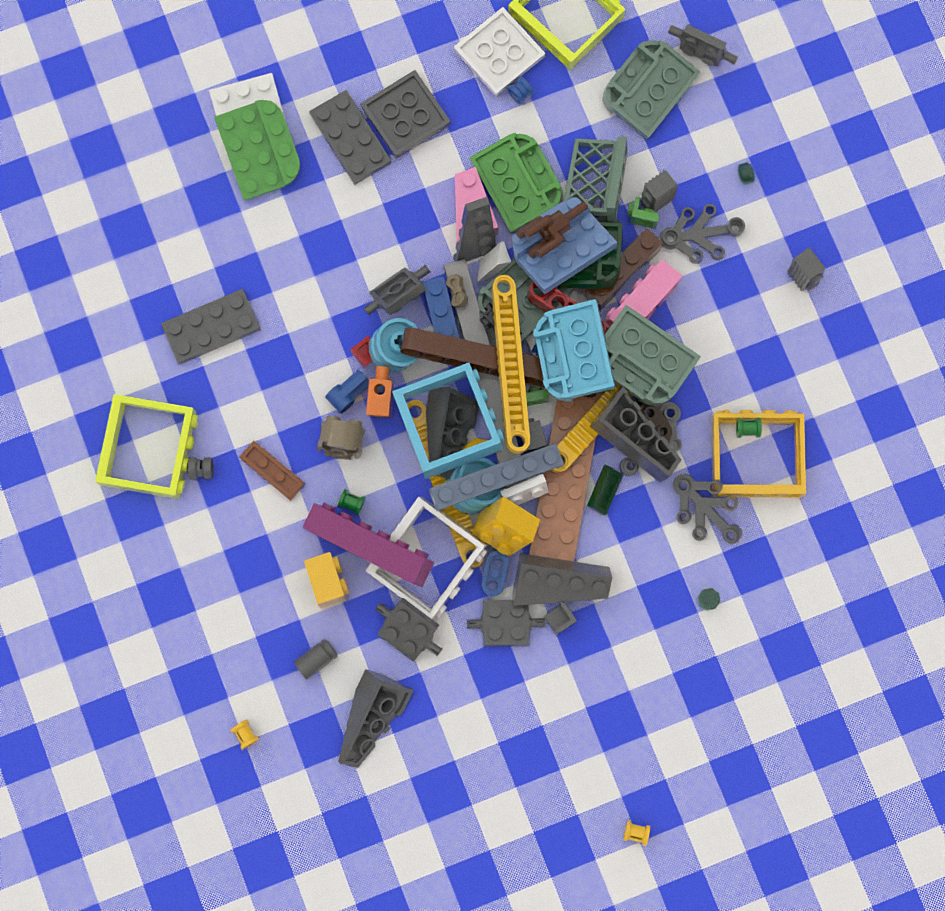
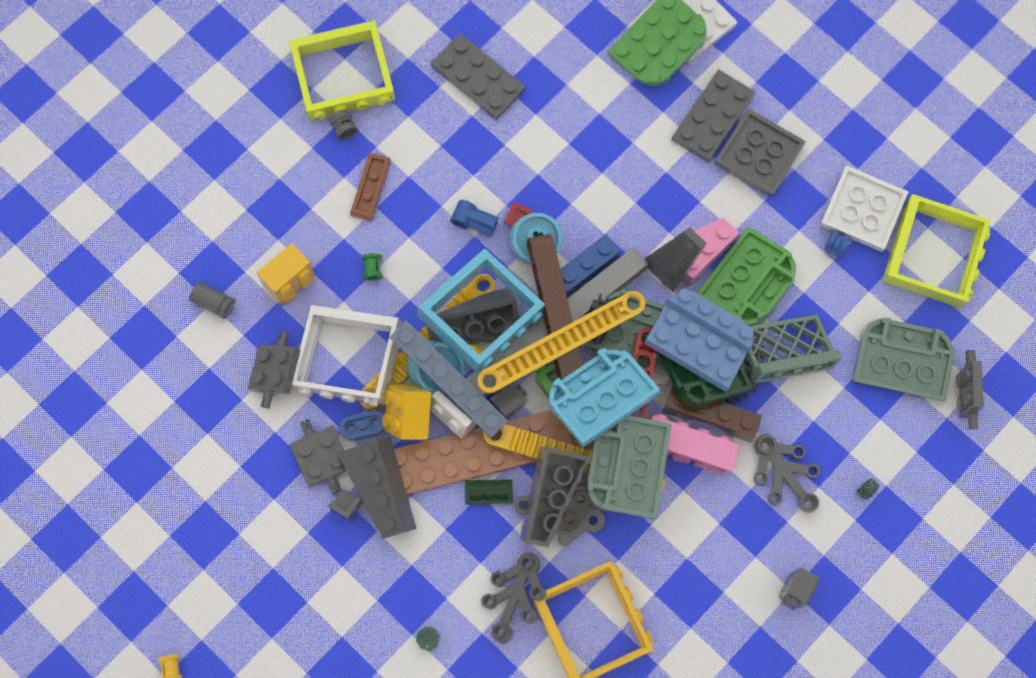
camera: 60 degrees right, 5 degrees down
(244, 734) = (117, 269): yellow bush -> none
(341, 438) = (425, 229): dark tan brick -> none
(369, 545) = (334, 295): magenta brick -> none
(372, 710) = (187, 372): dark grey wedge -> none
(380, 404) = (473, 242): orange torso -> none
(397, 291) = (587, 217): dark grey plate -> none
(455, 283) = (618, 263): dark tan piece -> none
(493, 262) = (657, 290): white slope -> none
(550, 229) = (707, 317): reddish brown plant -> none
(644, 217) = (773, 412): bright green bracket -> none
(658, 191) = (802, 411): dark grey brick -> none
(748, 427) = (611, 599): green bush -> none

